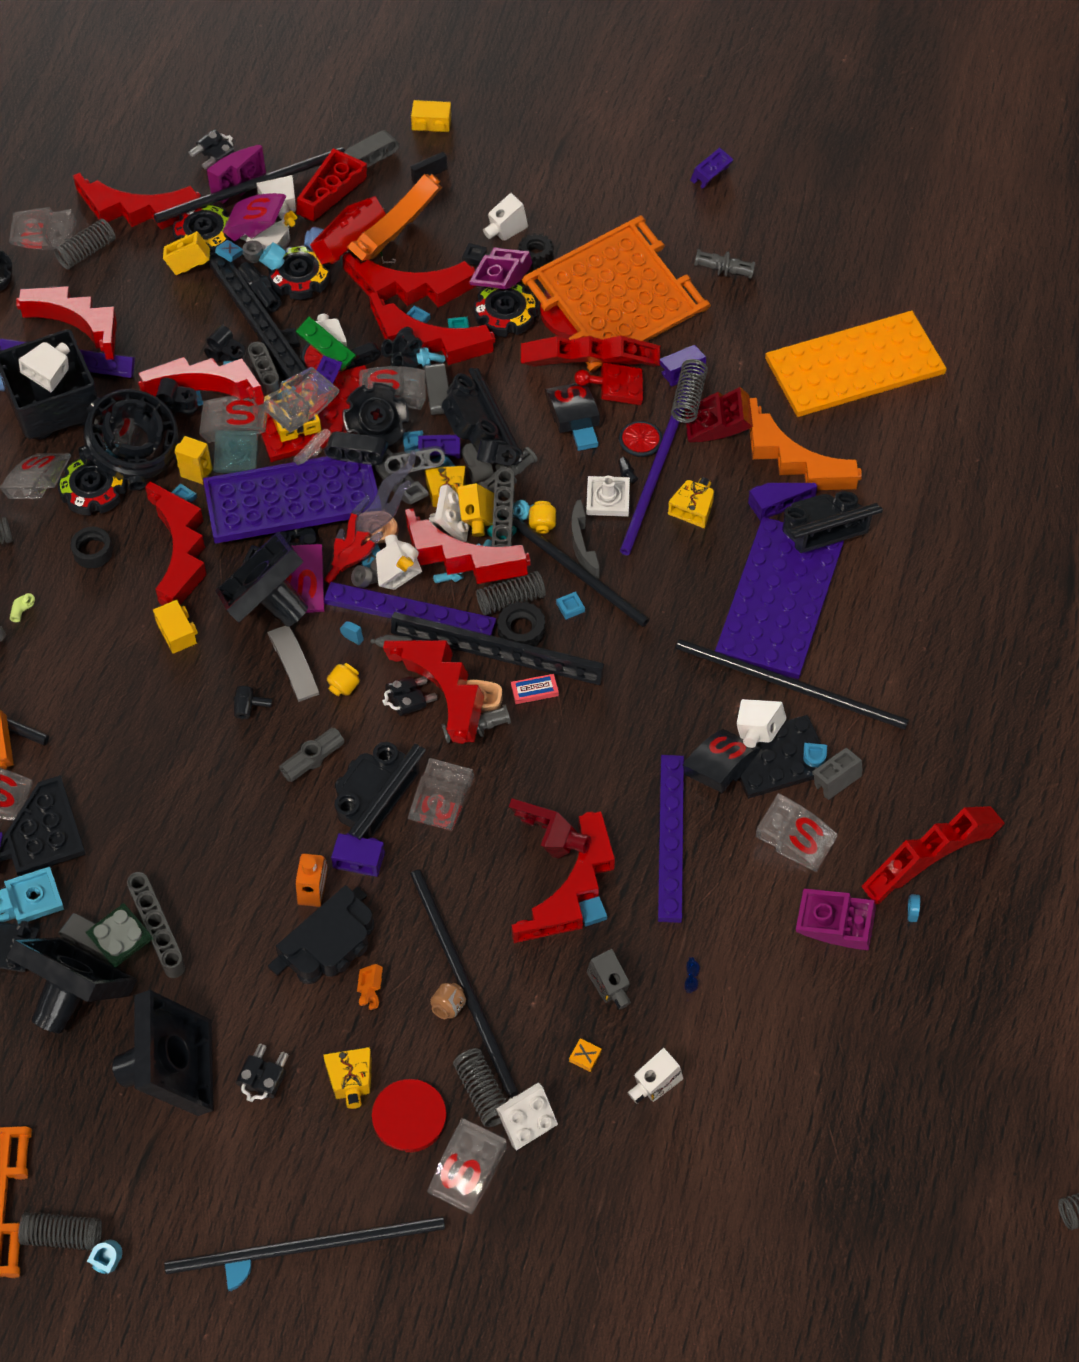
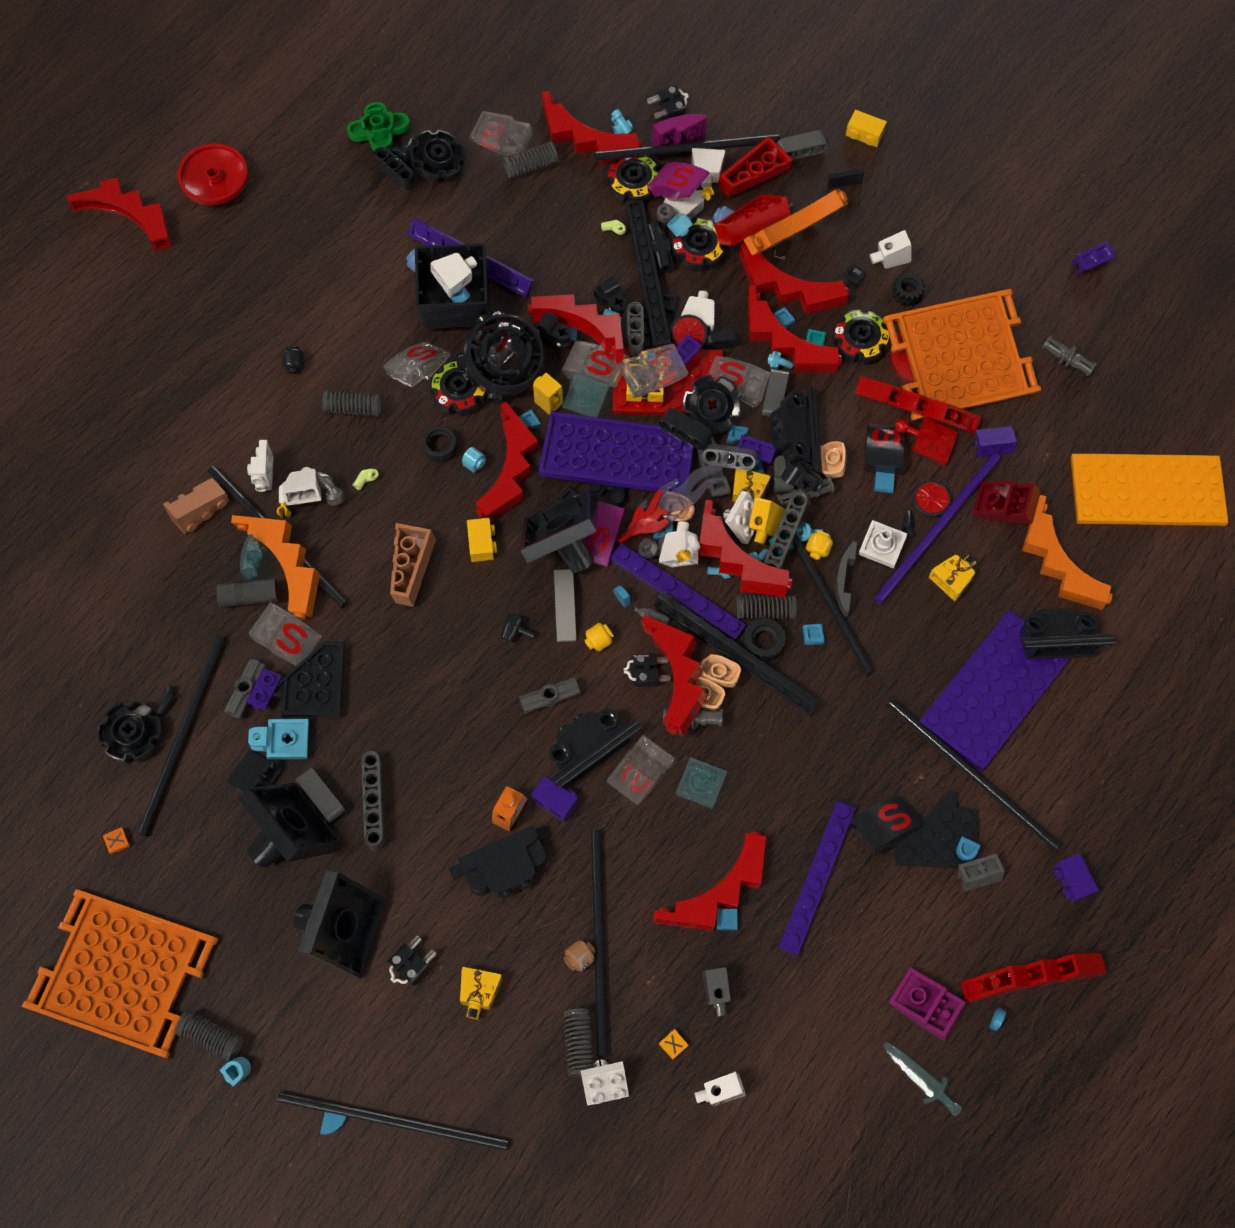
camera: 20 degrees right, 10 degrees up
(57, 304) = (503, 223): arch -> none
(62, 387) = (460, 296): none -> dark azure tile
(105, 668) = (410, 562): none -> nougat wedge
(119, 935) = (339, 802): light grey piece -> none
(136, 550) = (473, 459): none -> medium azure plate
(168, 182) = (621, 125): none -> medium azure plate
(186, 253) = (610, 197): yellow brick -> none
(202, 281) = (615, 226): none -> yellowish green arm
(229, 250) = (646, 205): dark azure tile -> none
(313, 447) = (650, 415): clear plate -> none
(325, 342) = (694, 322): green plate -> none
(368, 982) = (522, 915): orange plate -> none
(402, 348) = (758, 348): black piece -> none
(409, 1115) = (513, 1042): red tile -> none
(467, 1166) = (542, 1105): clear slope -> none
(488, 668) = (720, 670): none -> light nougat piece
(502, 268) = (871, 298): magenta slope -> none
(509, 782) = (701, 783): none -> clear light blue plate
(525, 430) = (833, 459): none -> light nougat piece
(534, 689) = (754, 700): tile -> none
(559, 834) = (725, 844): dark red plate -> none
(693, 970) = (790, 1003): clear blue piece -> none
(694, 376) = (1000, 456): dark grey piece -> none
(759, 721) = (931, 802): white torso -> none
(776, 497) = (1028, 596): dark purple slope -> none
(796, 833) = (924, 914): clear slope -> none
(861, 994) = (923, 1079): none -> clear light blue sword
(935, 746) = (1075, 878): none -> dark purple brick

